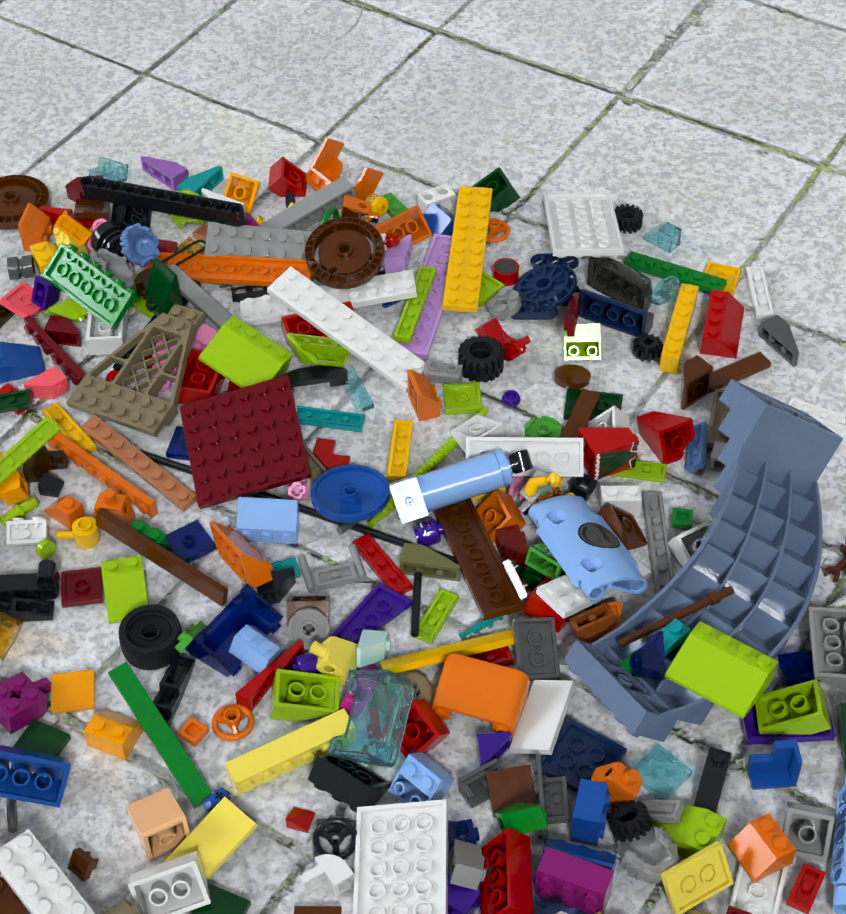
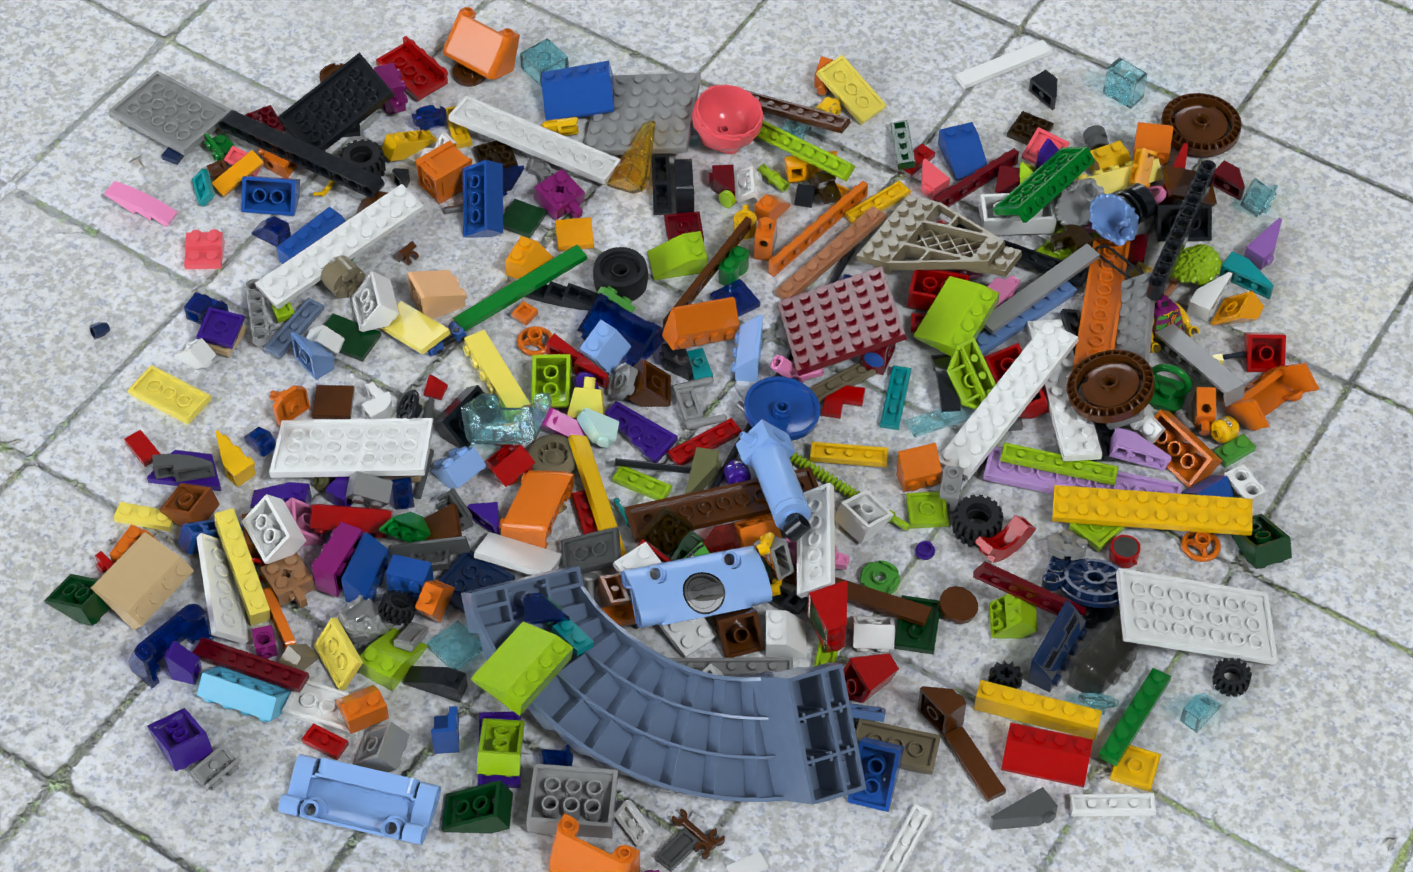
camera: 90 degrees right, 5 degrees up
(18, 551) = (722, 178): none -> dark red slope
(162, 289) = (1038, 244): dark green slope -> none
(391, 240) = (1148, 435): red plate -> none
(712, 599) = (612, 671): reddish brown bar -> none

